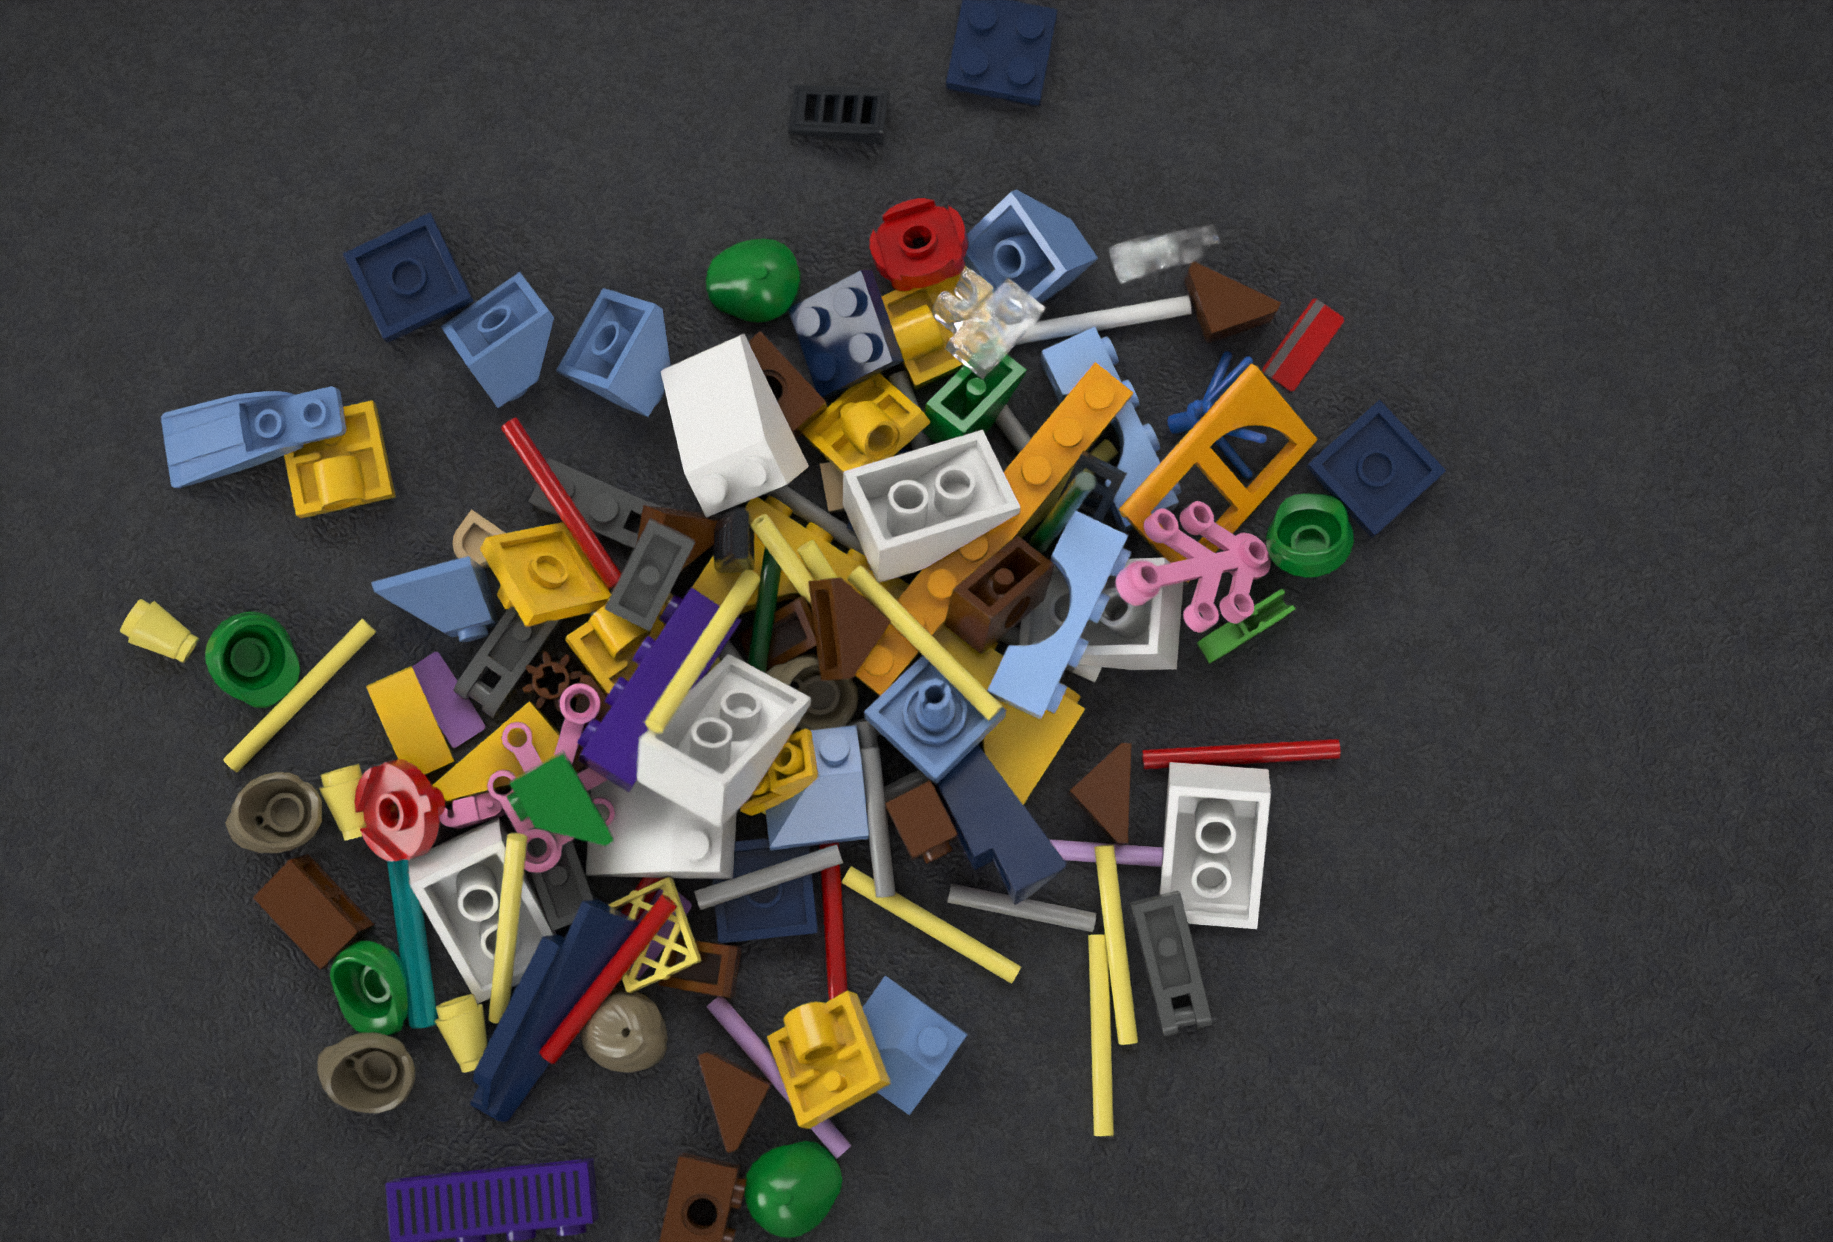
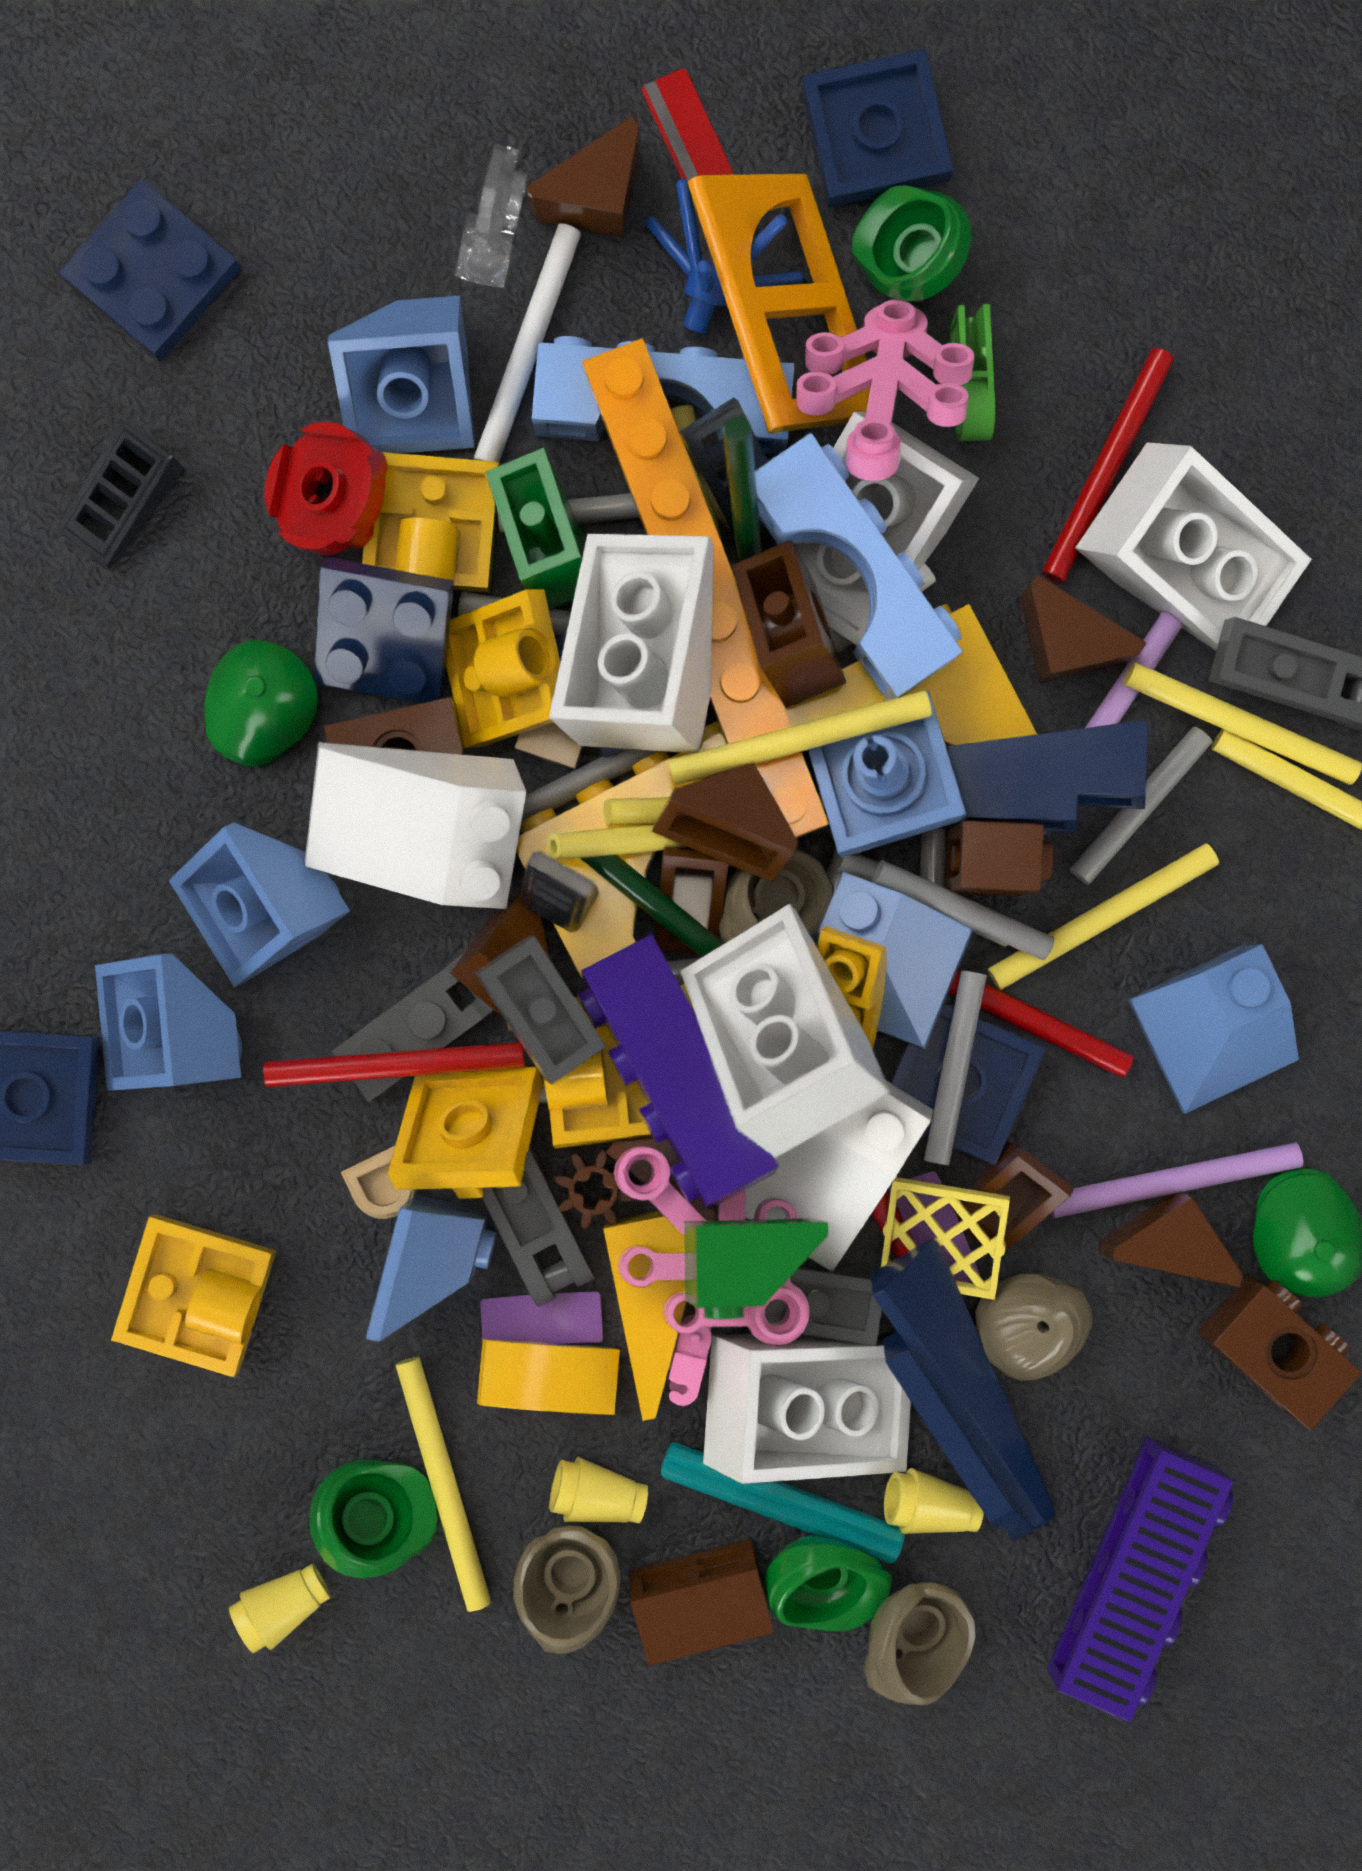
camera: 65 degrees left, 5 degrees up
(246, 431) = (102, 1380): medium blue piece -> none
(418, 808) = (620, 1442): red plate -> none
(507, 925) = (846, 1394): light yellow bar -> none
(608, 979) = (969, 1312): red piece -> none
(702, 651) = (669, 999): light yellow bar -> none
(827, 1058) = (1197, 1115): yellow plate -> none
(983, 321) = (459, 461): clear plate -> none

